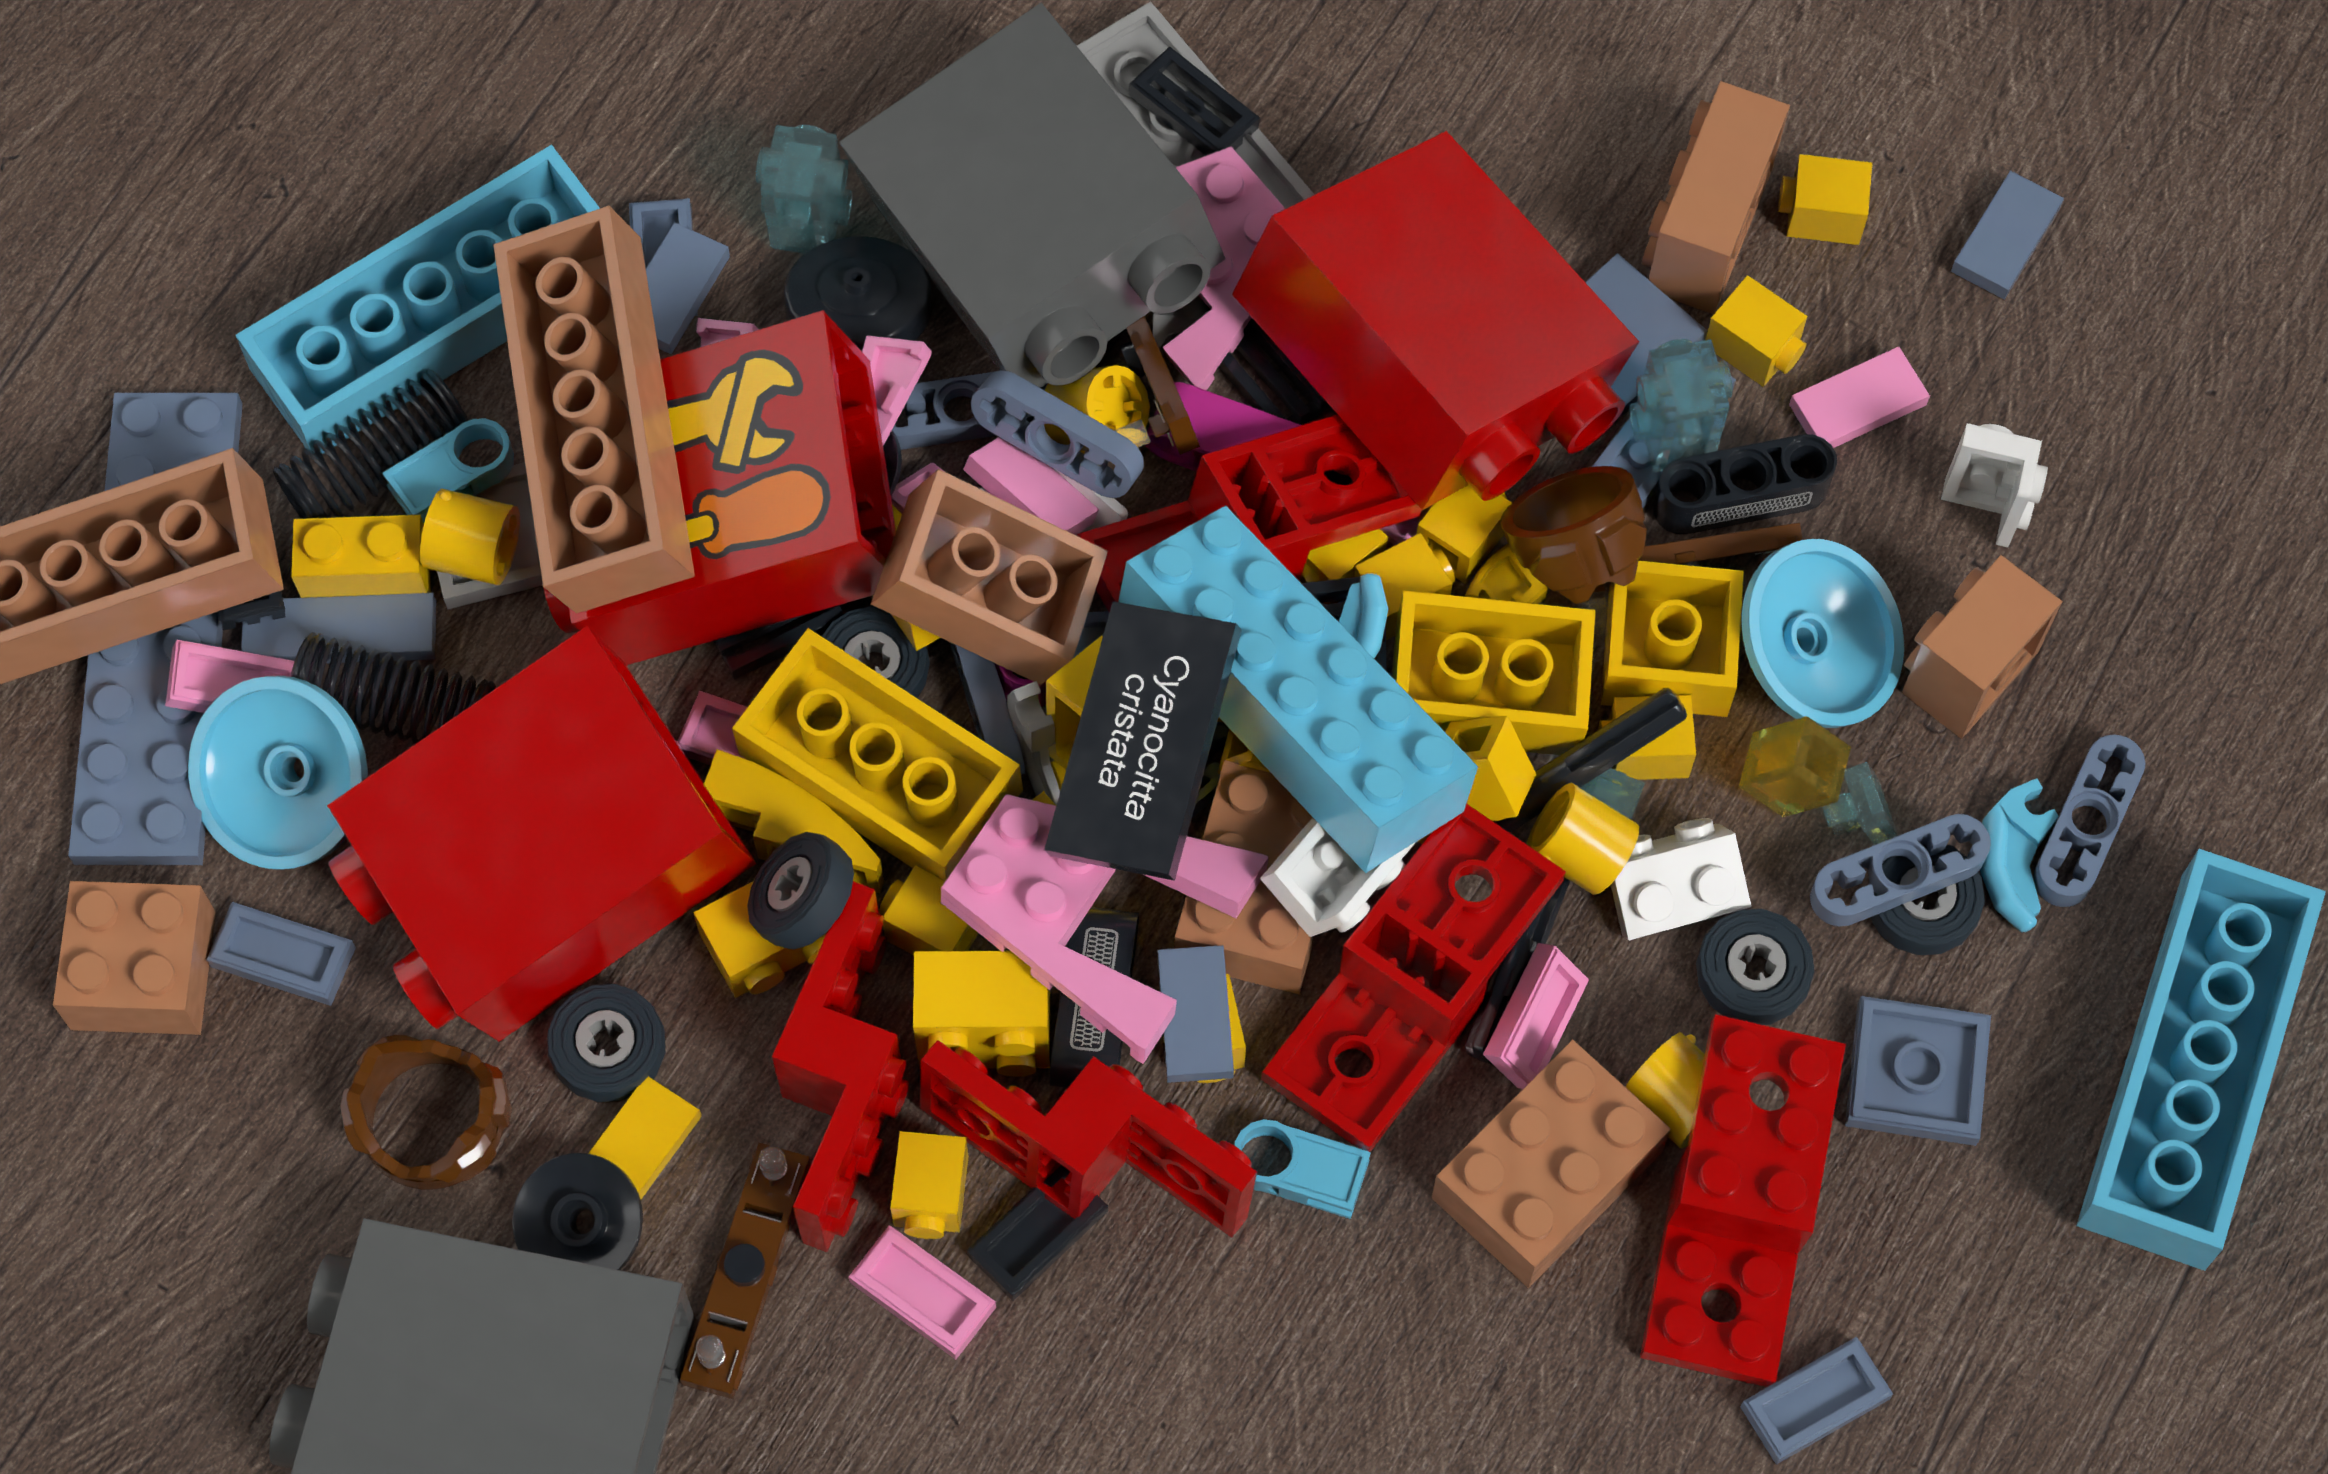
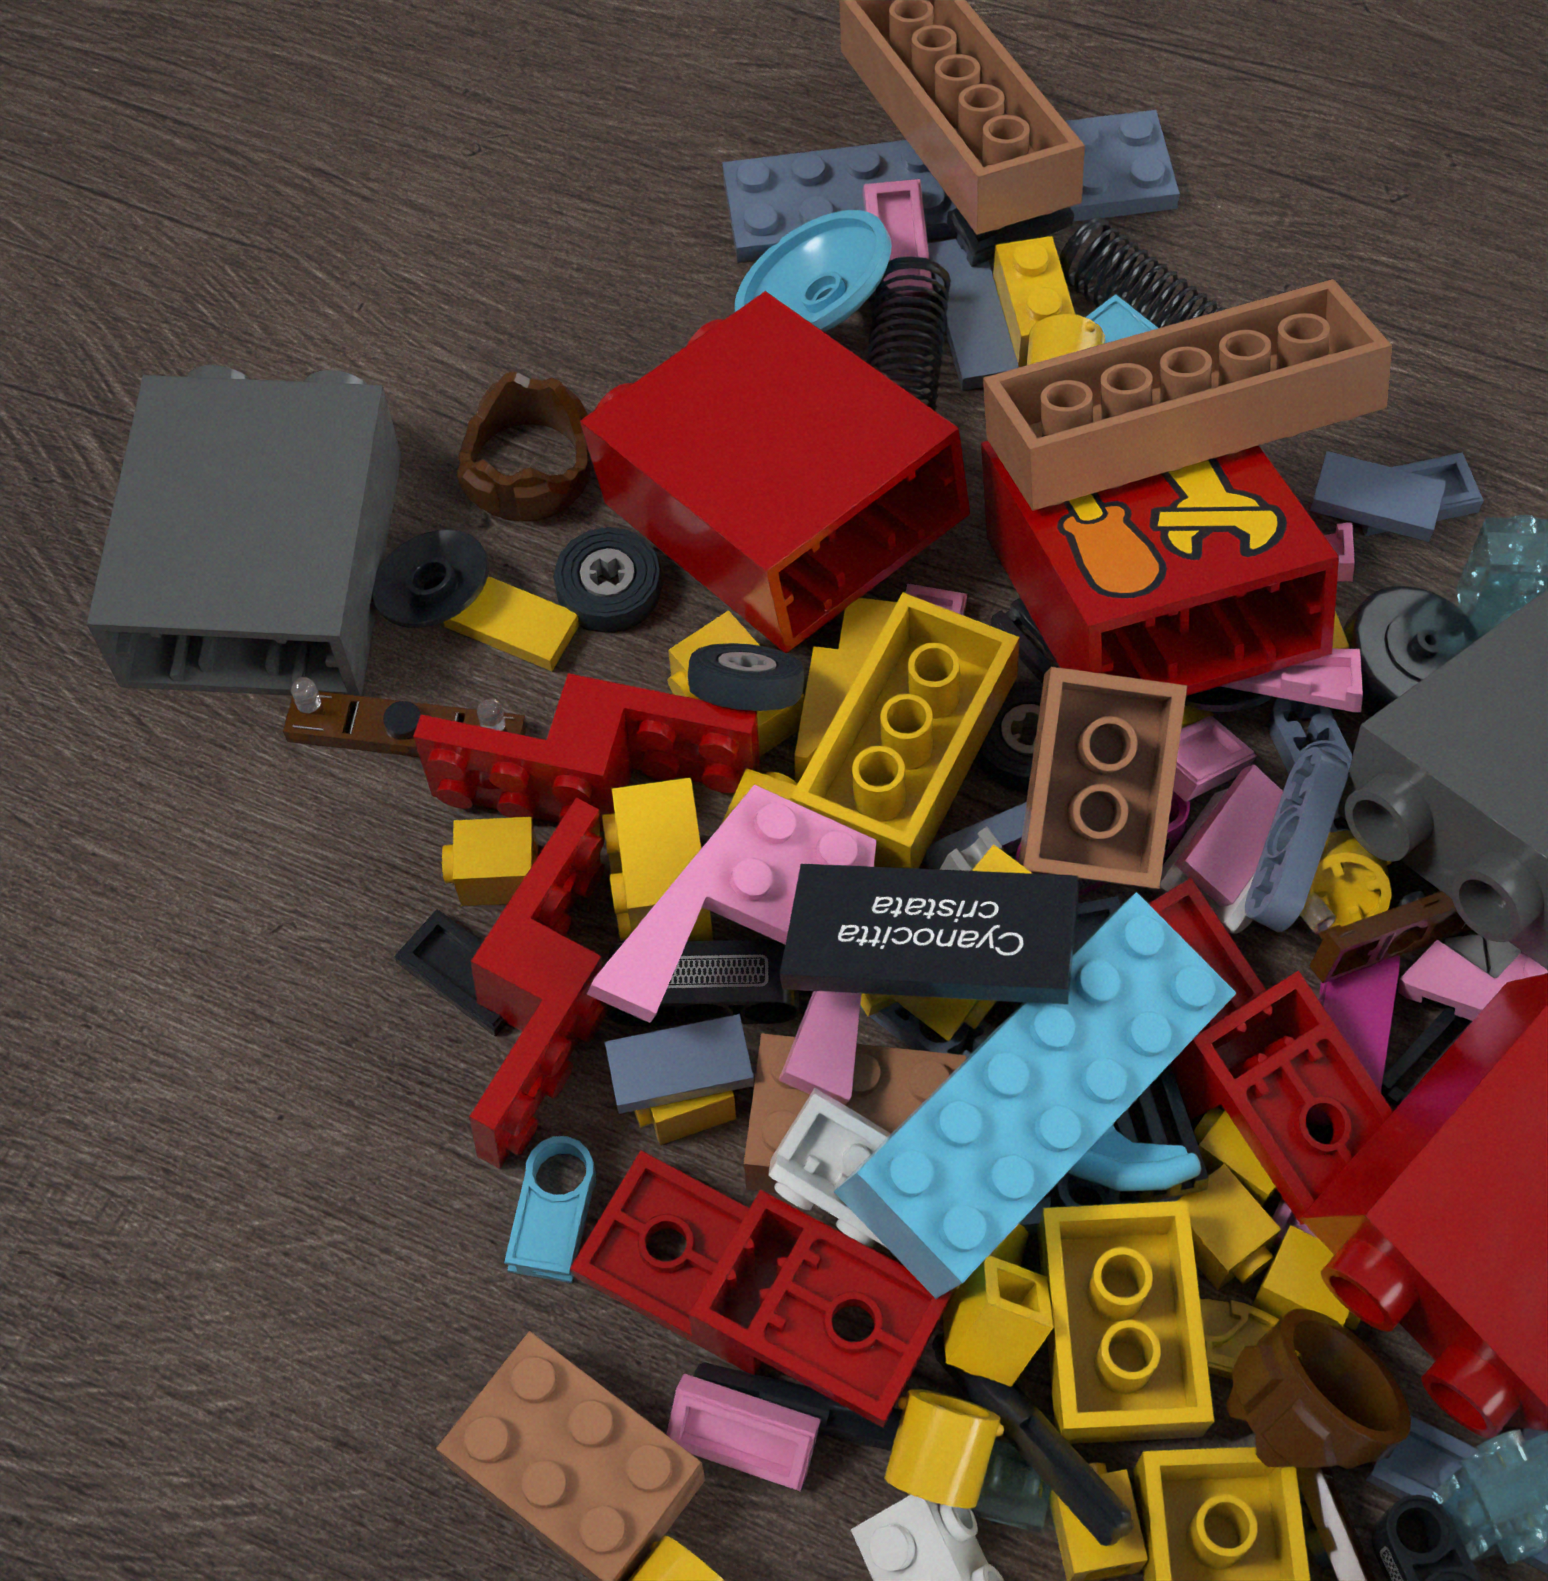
camera: 85 degrees right, 5 degrees down
(134, 957) = (633, 219): nougat brick -> none
(281, 953) = (660, 322): sand blue tile -> none
(406, 306) = (1250, 247): medium azure brick -> none
(922, 1292) = (393, 880): bright pink tile -> none

